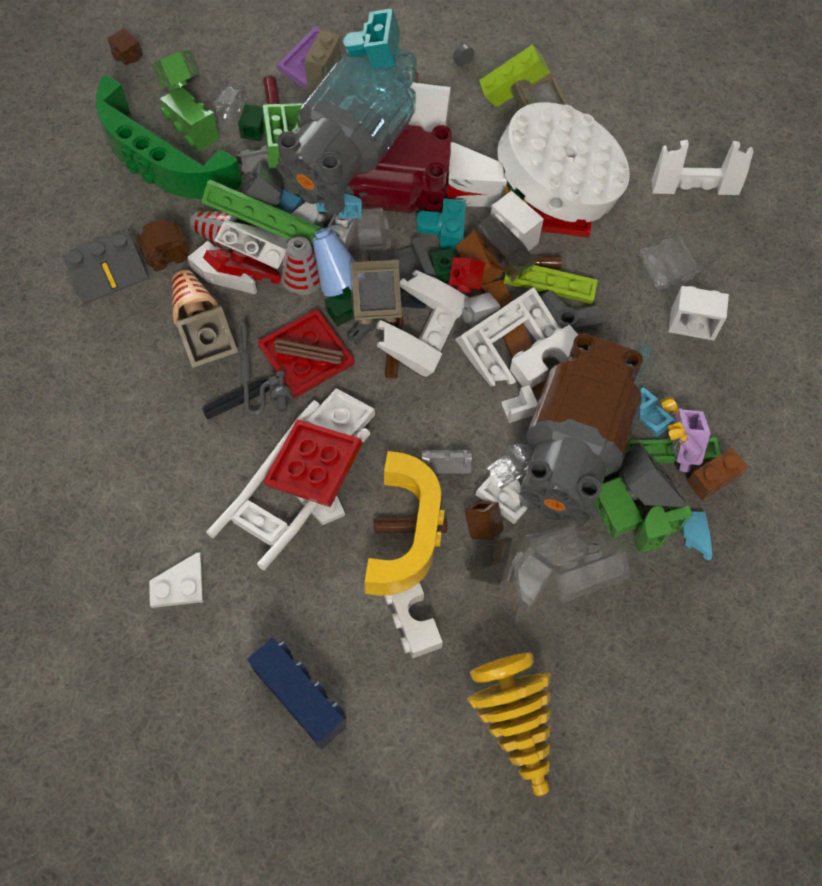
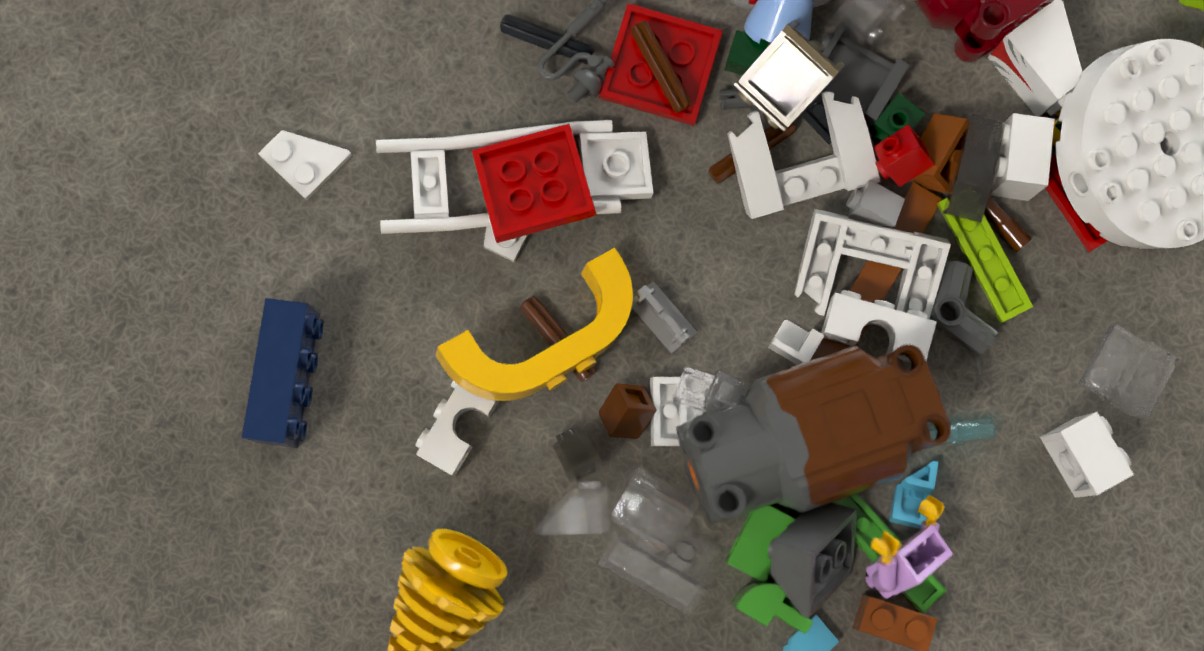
camera: 50 degrees right, 15 degrees up
(446, 225) = (955, 81): teal brick -> none

